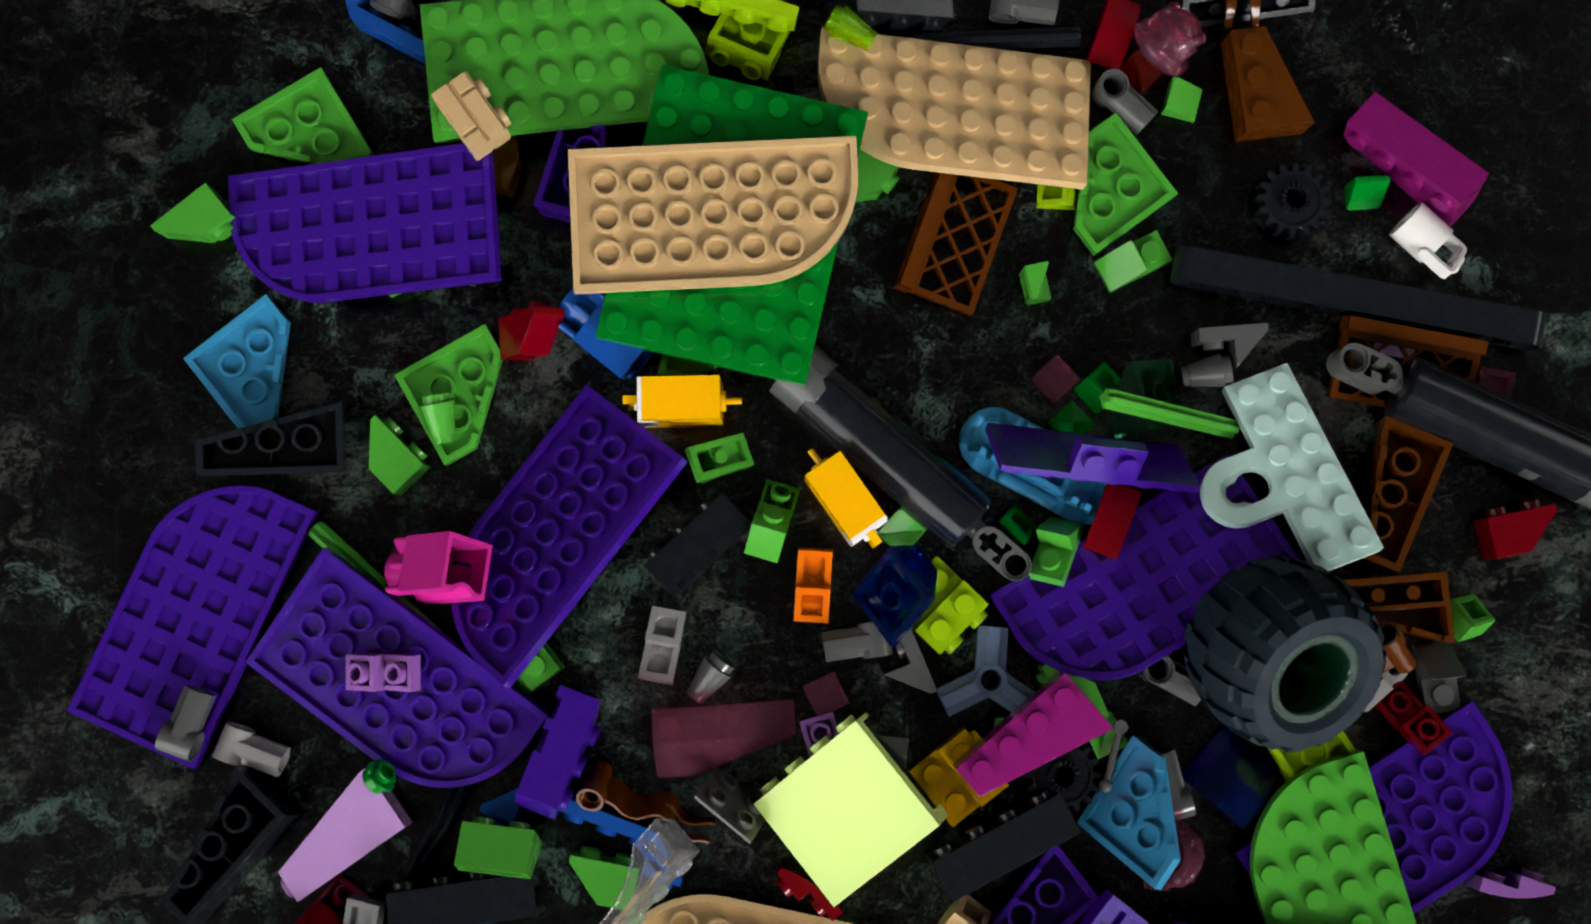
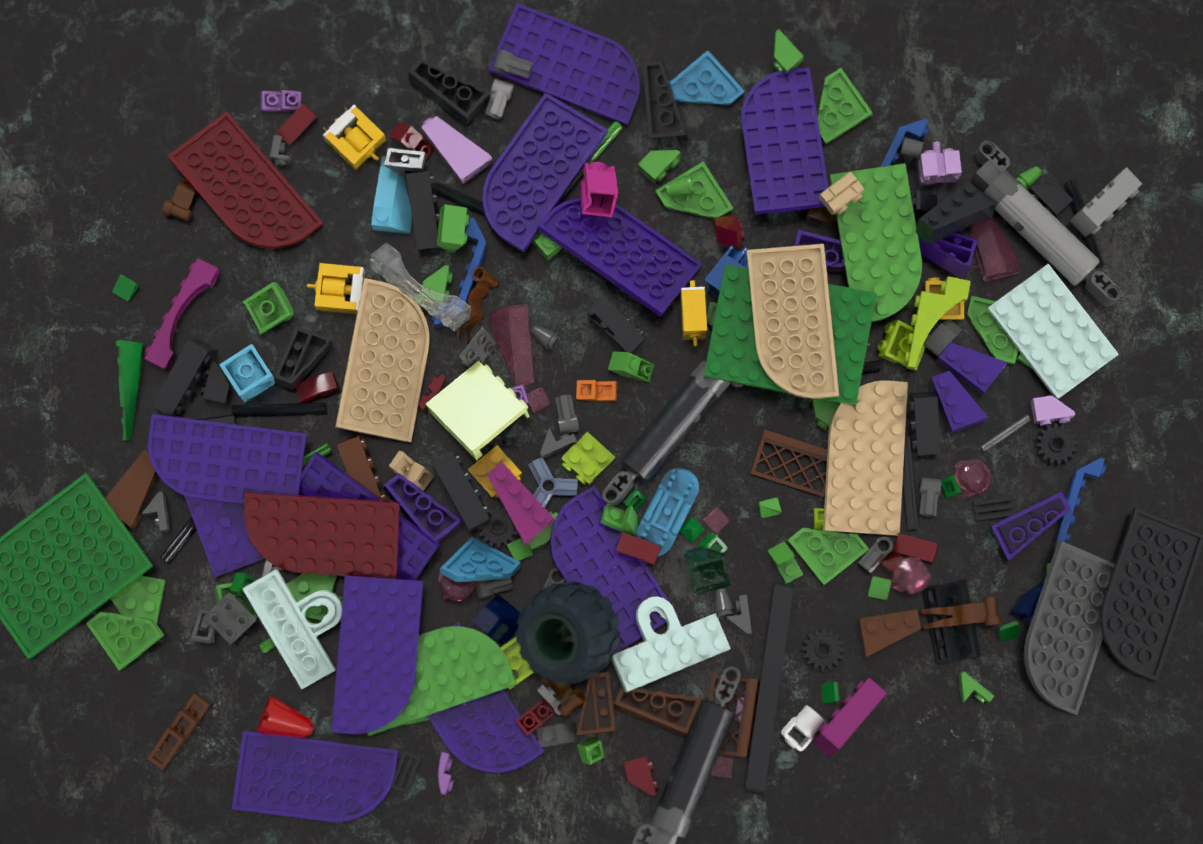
camera: 90 degrees right, 5 degrees down
(379, 776) = (487, 165): green plate -> none
(383, 672) = (542, 164): medium lavender slope -> none
(559, 754) = (502, 257): dark purple wedge -> none
(662, 645) = (561, 311): light grey slope -> none
(719, 457) = (664, 336): bright green slope -> none
(845, 499) = (643, 403): yellow piece -> none
(849, 28) = (905, 395): clear neon green cone -> none
(898, 591) = (596, 432): clear blue slope -> none
(901, 529) = (626, 436): bright green slope -> none
(1090, 458) = (671, 534): dark purple bracket -> none
(1120, 727) = (524, 555): dark grey hinge -> none
(1168, 413) = (697, 576): bright green axle -> none

